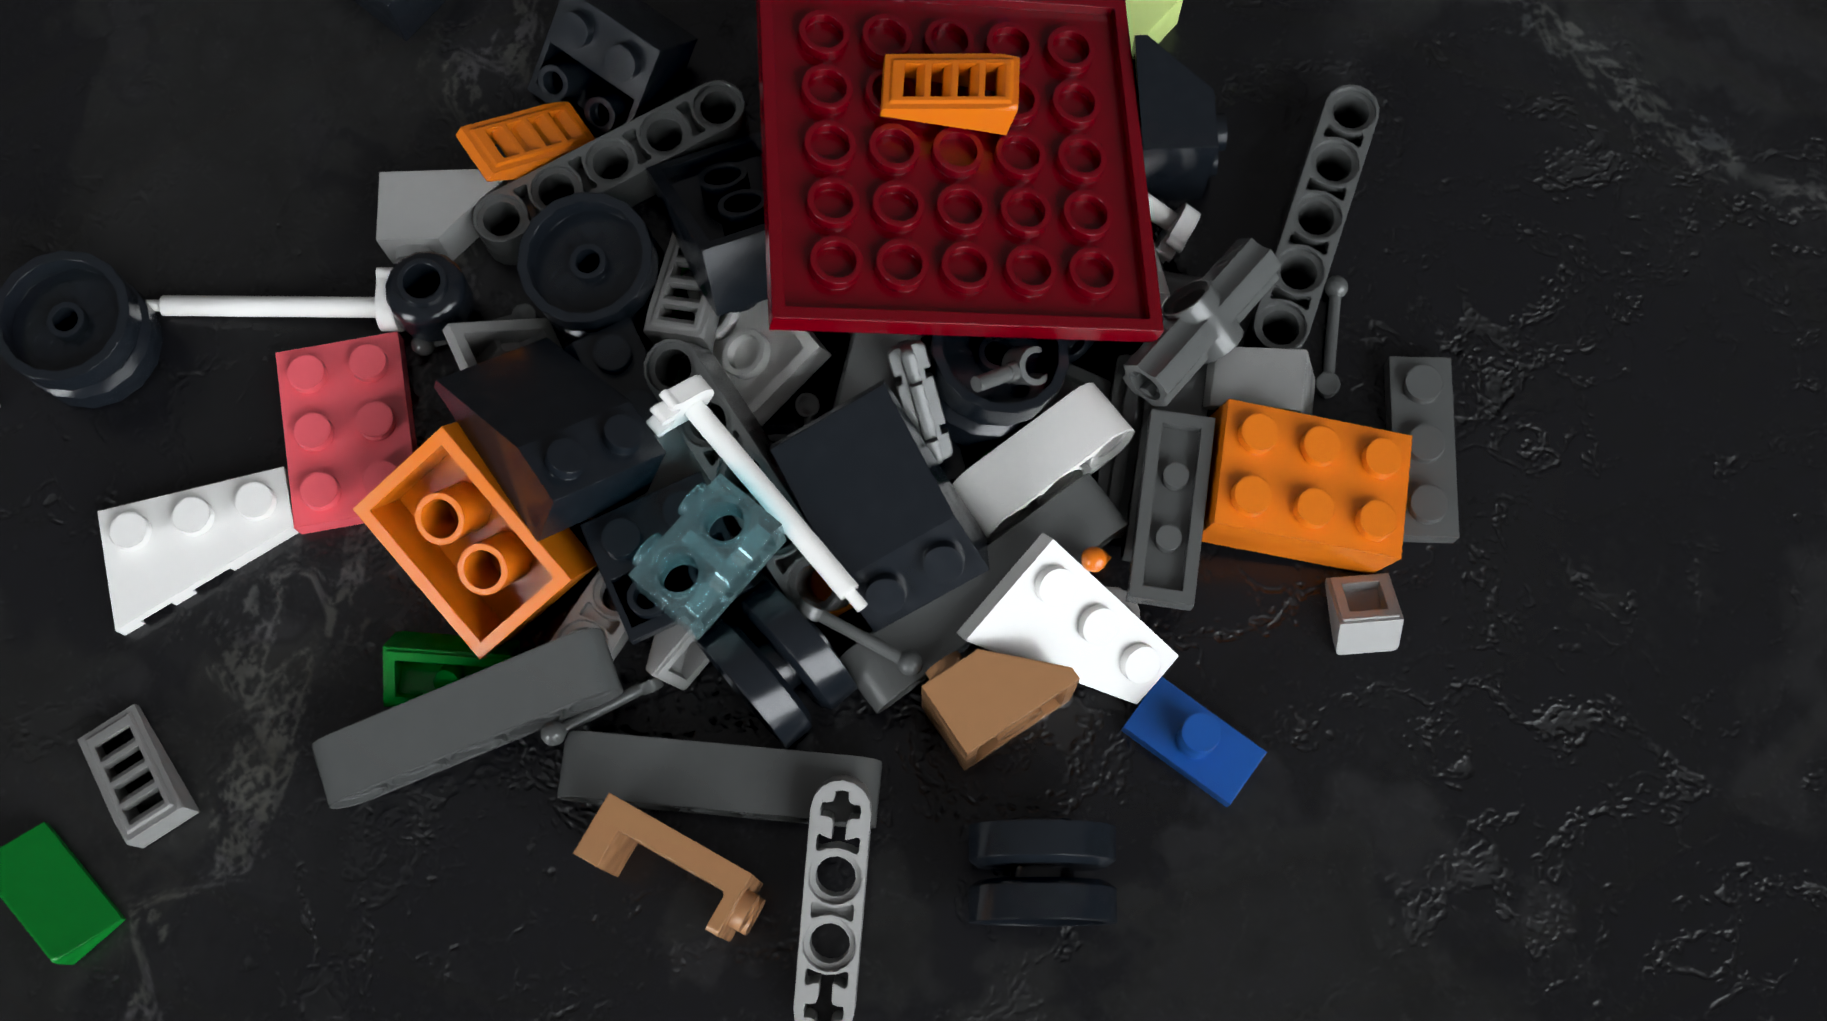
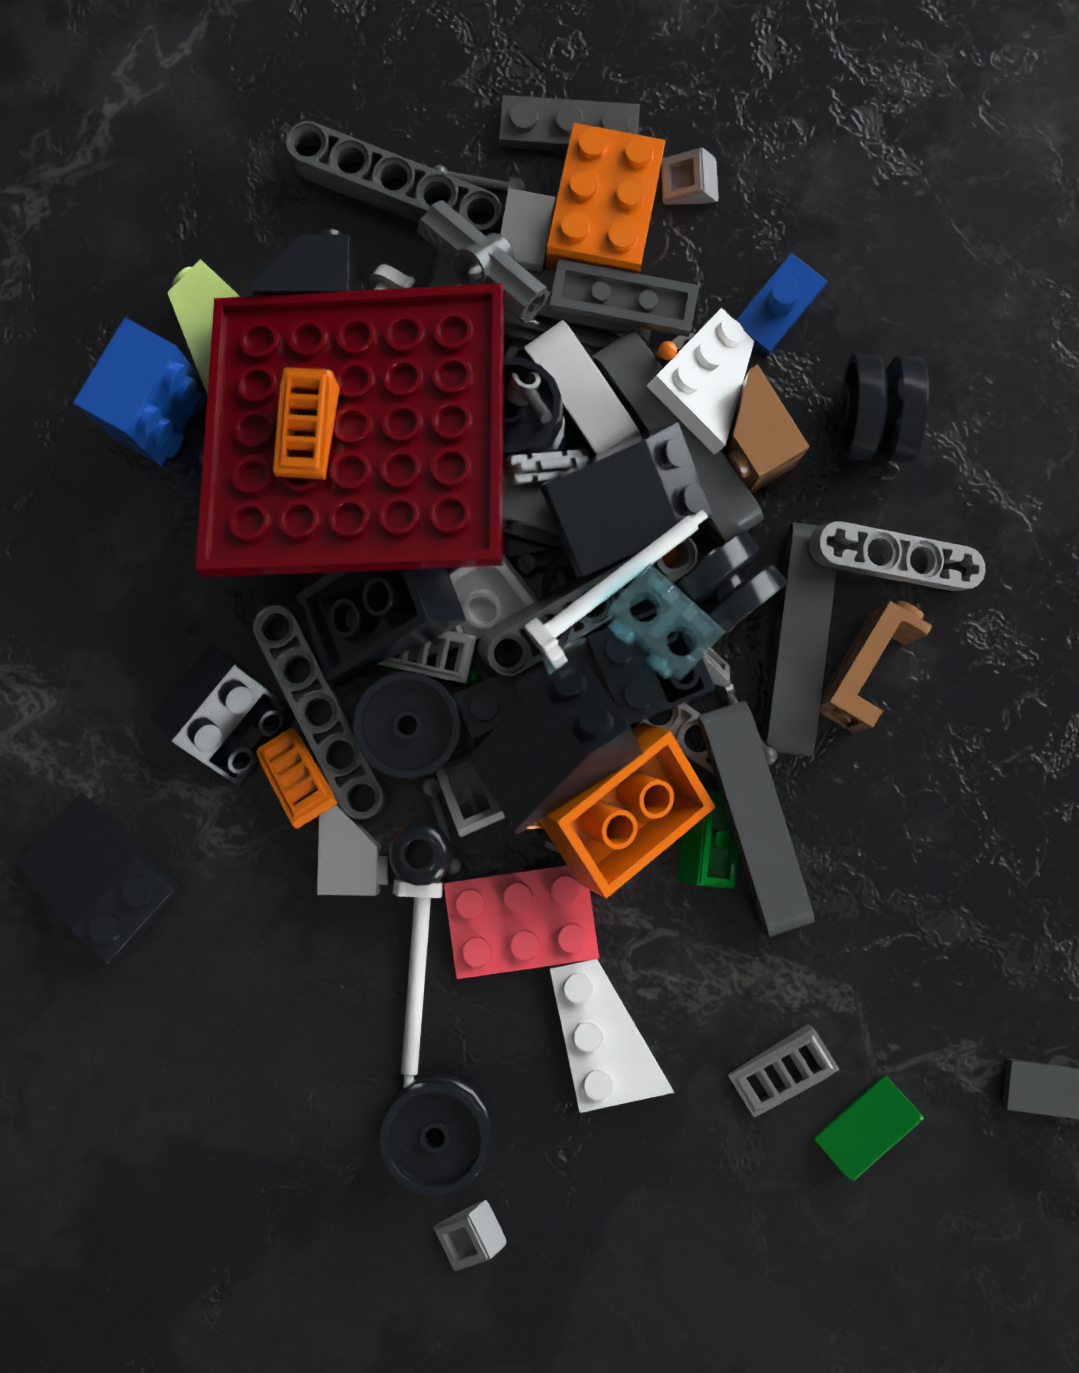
camera: 90 degrees left, 10 degrees up
(908, 662) = (735, 489): dark grey hinge -> none

